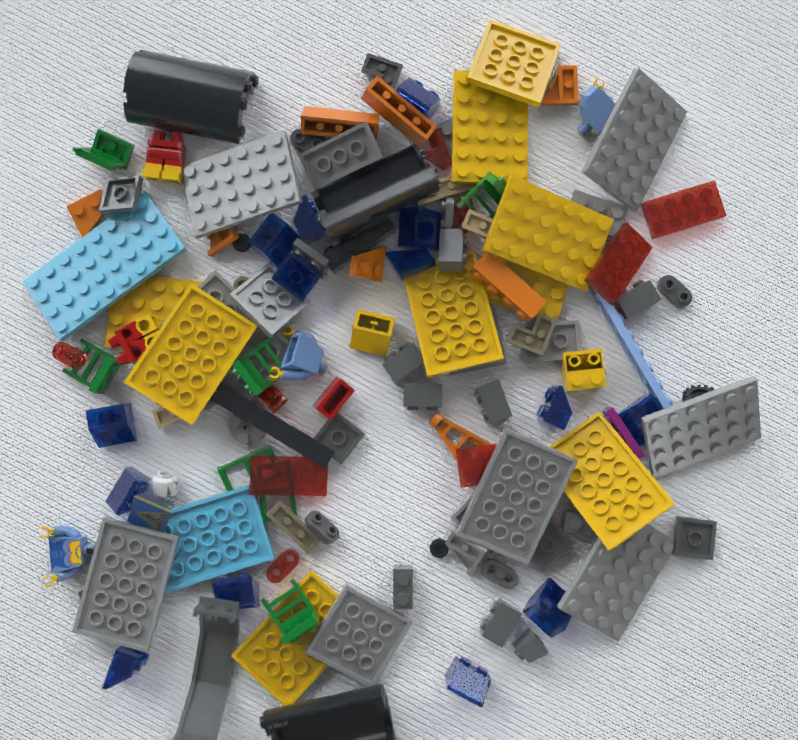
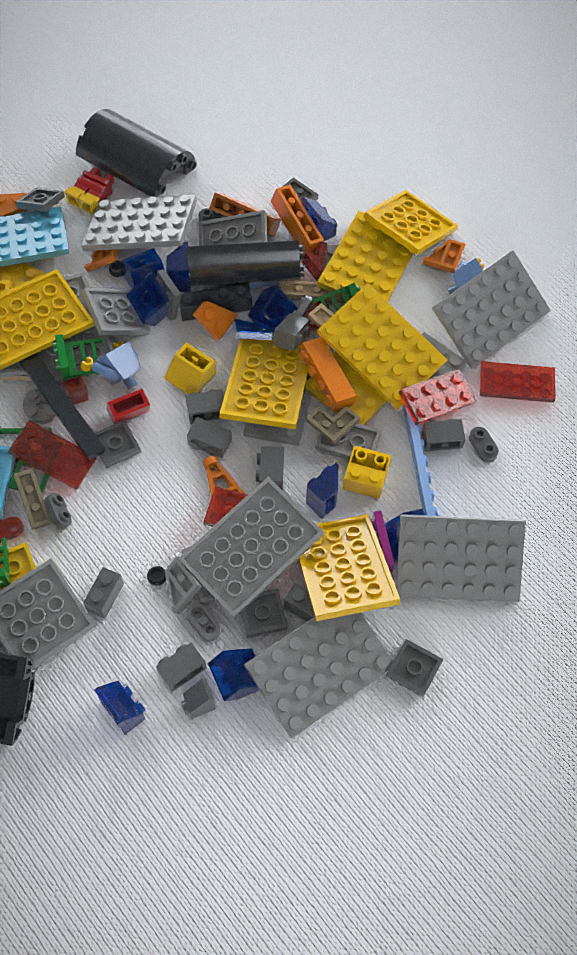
camera: 20 degrees right, 25 degrees down
(107, 151) = (49, 168): green plate -> none

